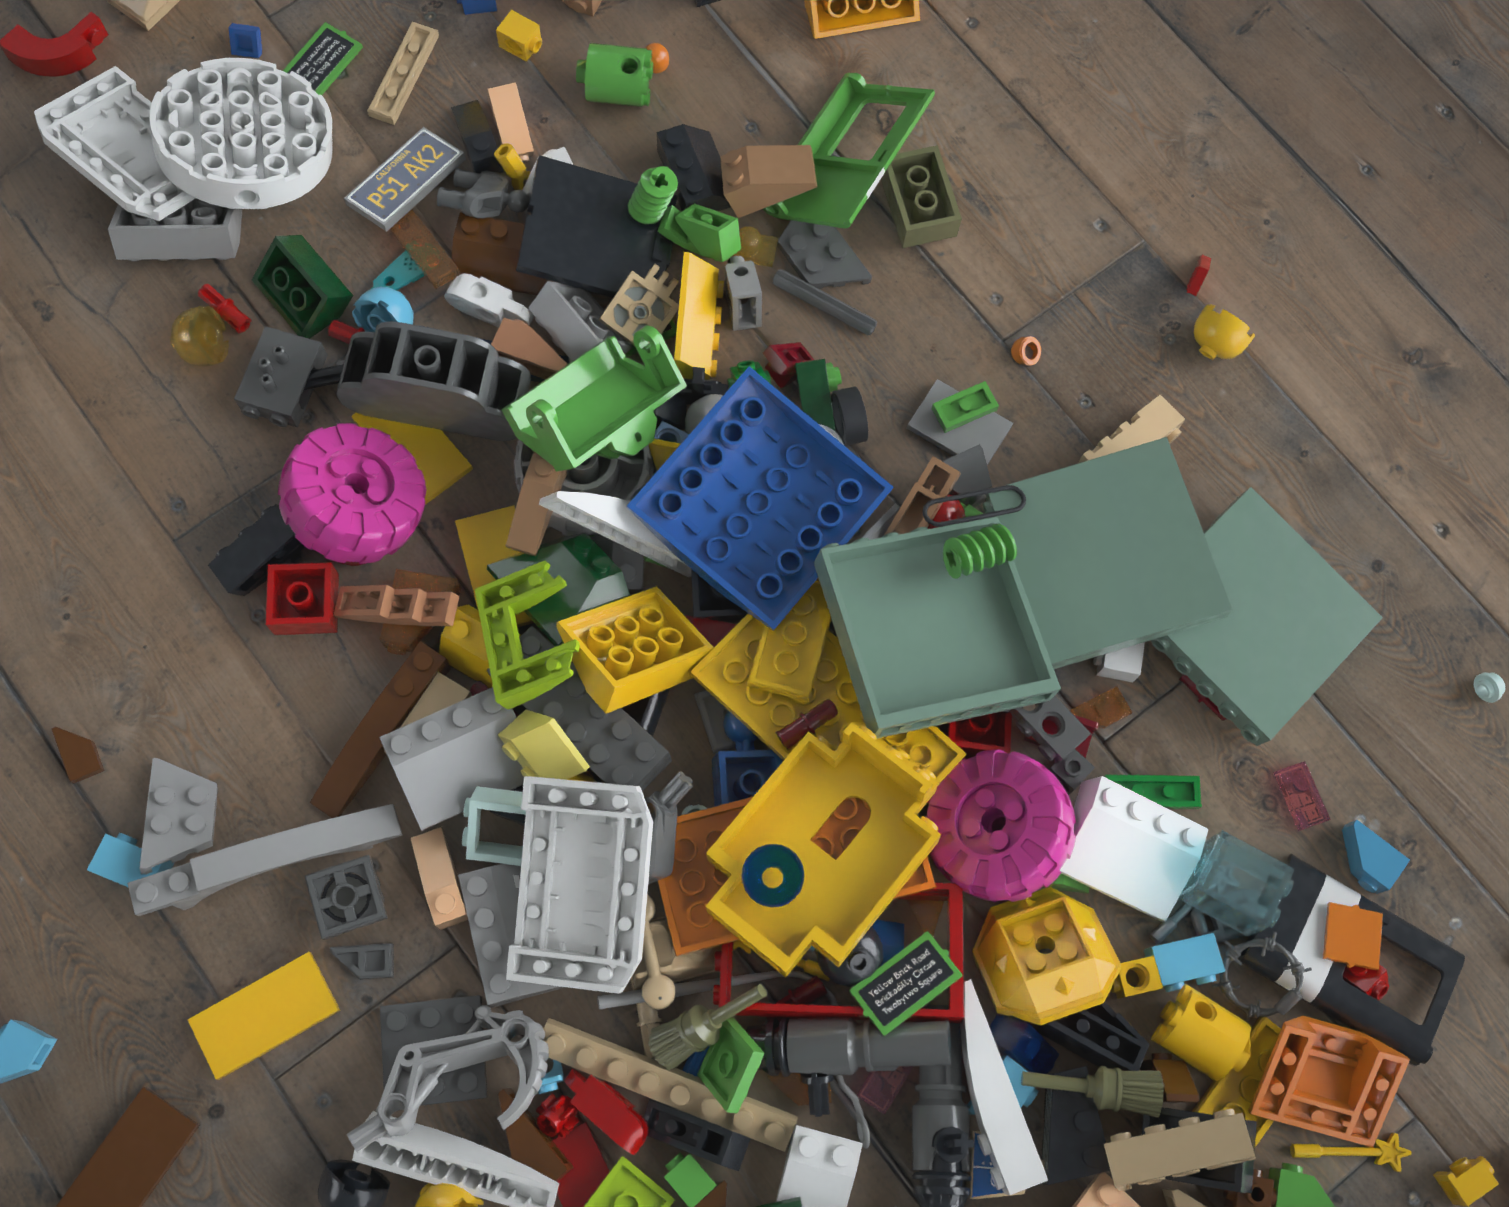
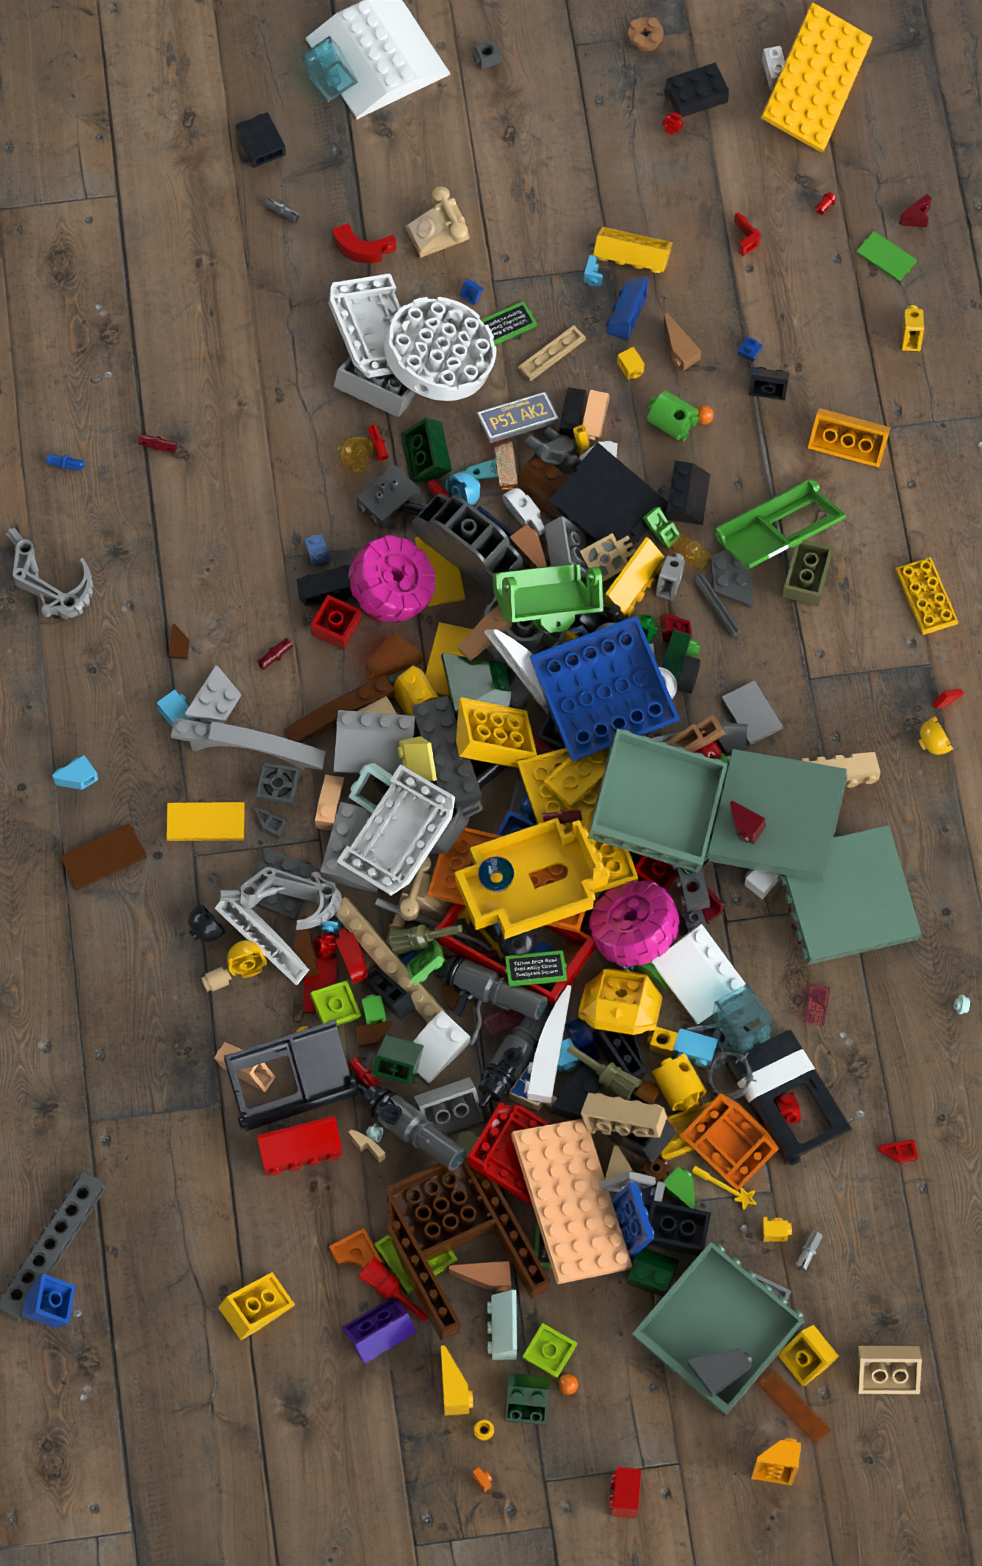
camera: 35 degrees right, 5 degrees down
(216, 504) = (317, 549): none -> medium blue bracket
(235, 693) = (275, 653): none -> dark red pin
(396, 606) = (382, 650): nougat slope -> none
(512, 676) = (437, 674): lime wedge -> none
(652, 195) = (648, 496): bright green piece -> none
(710, 231) = (671, 533): bright green slope -> none
(766, 175) = (722, 516): medium nougat slope -> none
(965, 407) = (758, 702): bright green plate -> none
(976, 517) = (716, 758): black piece -> none
(978, 550) = (702, 772): bright green piece -> none
(1018, 351) = (812, 688): orange piece -> none
(1079, 590) = (747, 823): none -> dark red slope
(1083, 155) = (926, 596): none -> yellow tile
(1104, 708) = (735, 903): clear orange tile -> none
(1165, 790) = (740, 960): green plate -> none
(1353, 936) = (792, 1081): orange piece -> none
(1372, 858) = (833, 1055): dark azure slope -> none

